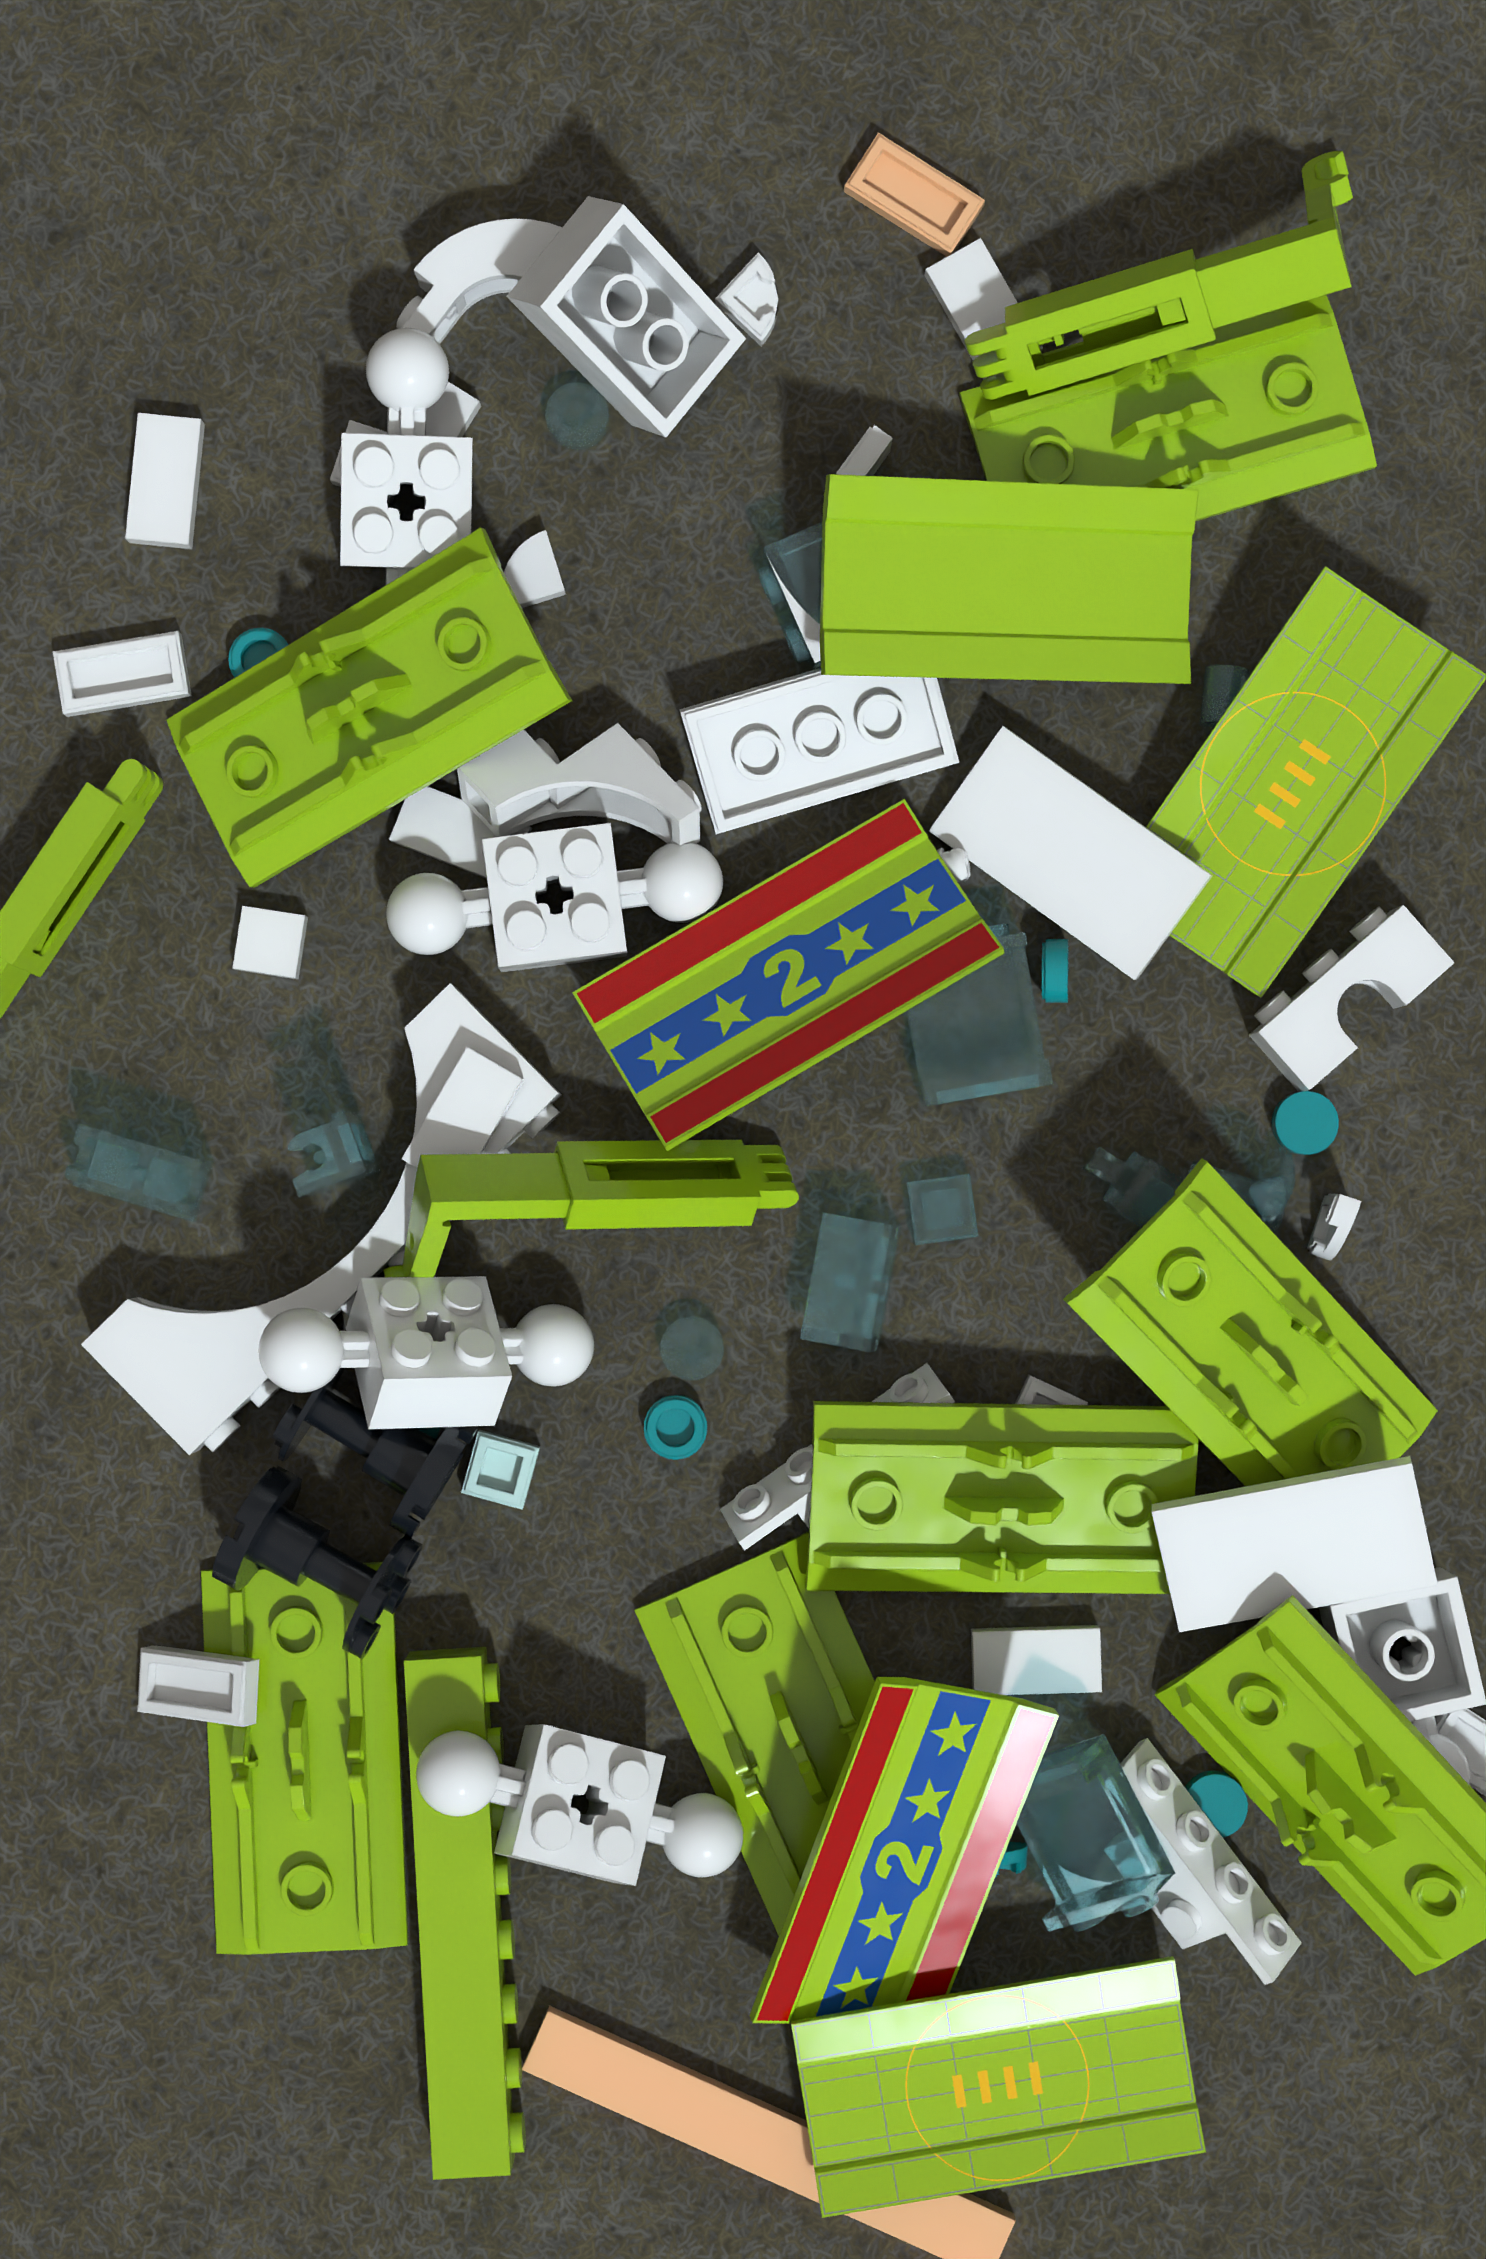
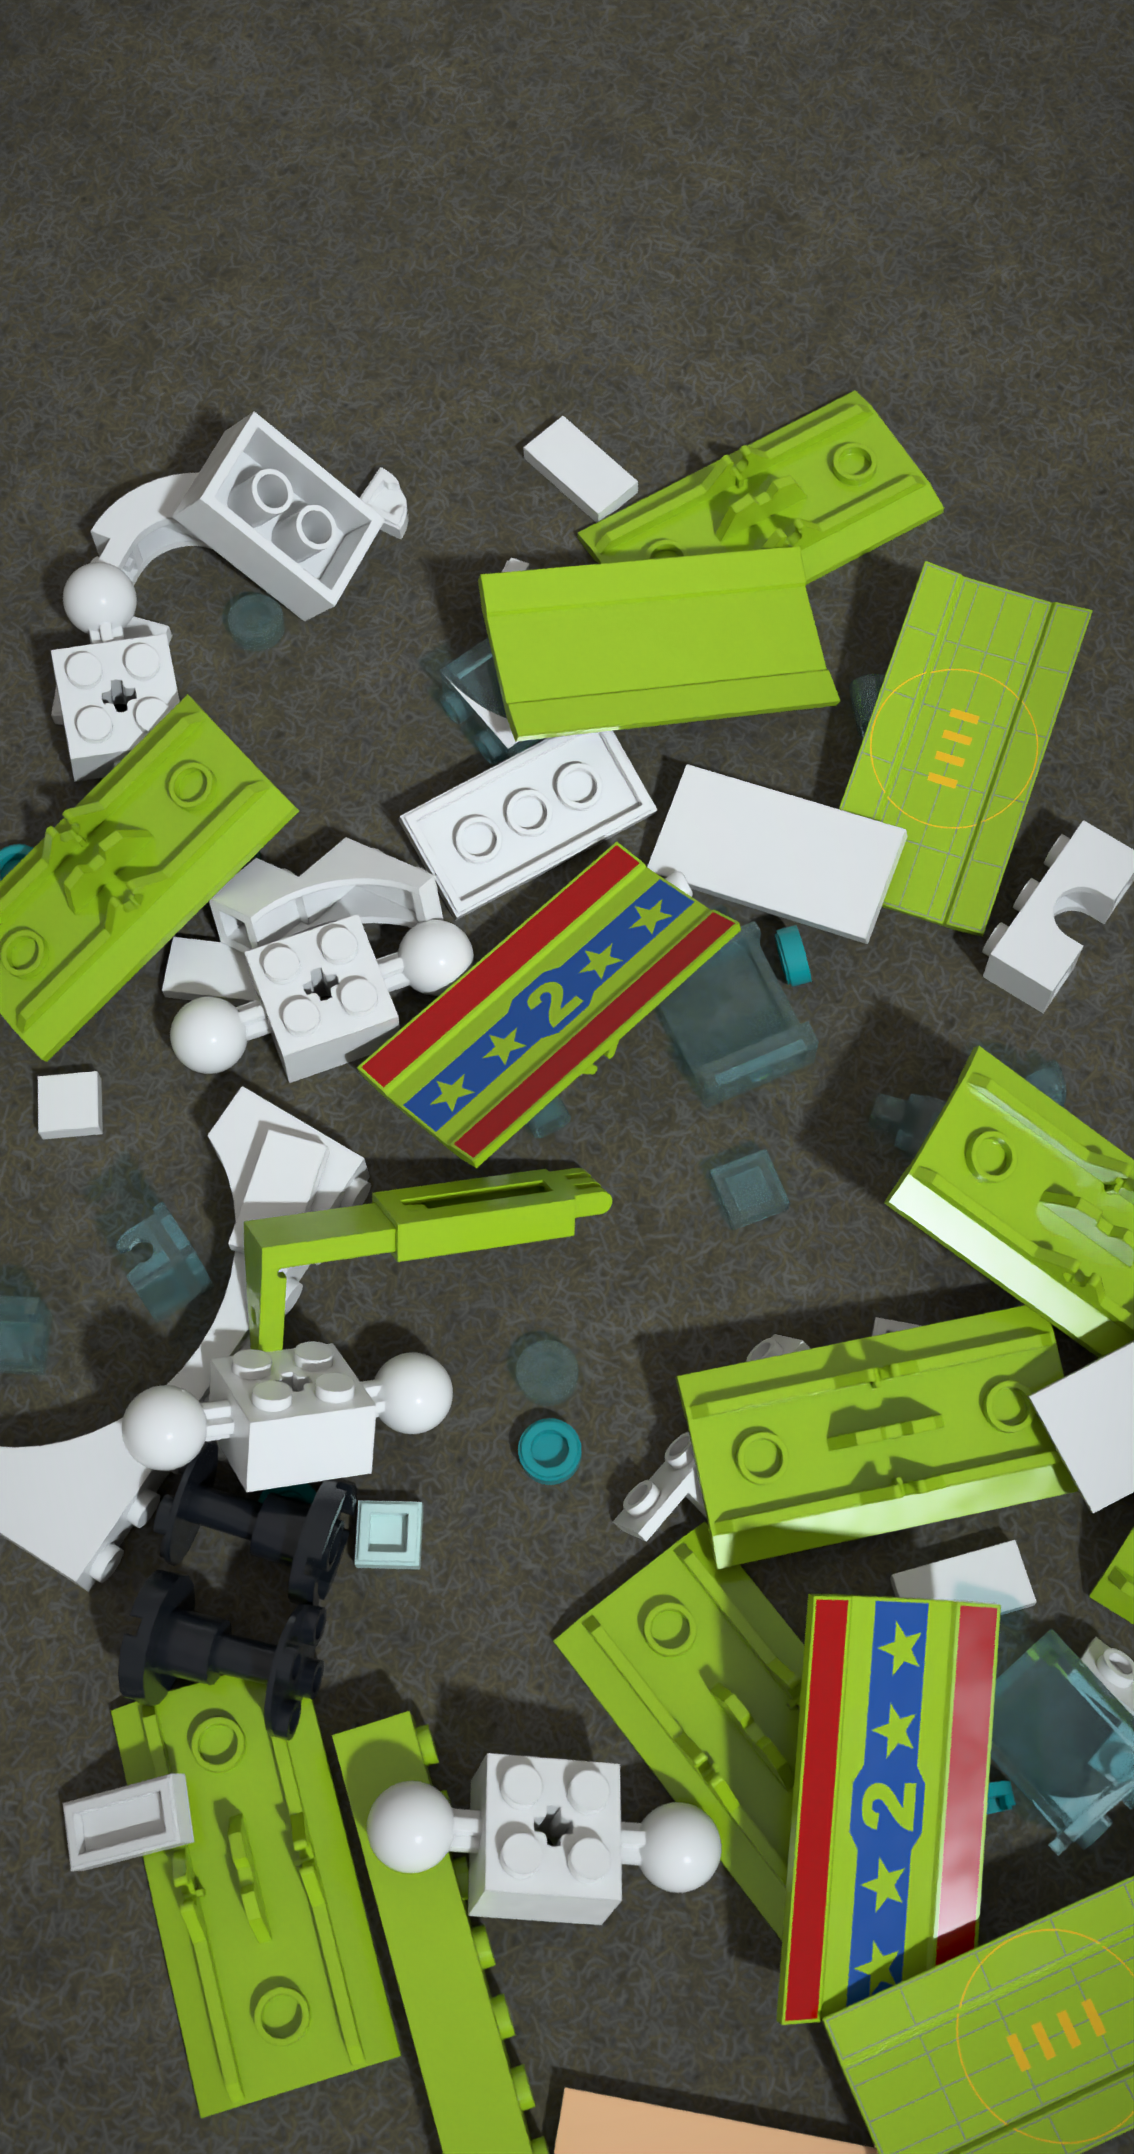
camera: 10 degrees left, 20 degrees down
(534, 572) = (251, 741): white tile -> none
(850, 1282) = (682, 1270): clear light blue hinge -> none
(914, 195) = (499, 401): light nougat tile -> none
(1168, 300) = (724, 410): lime hinge -> none
(1305, 1122) = (1058, 1034): teal tile -> none
(1336, 1217) = (1113, 1094): white tile -> none

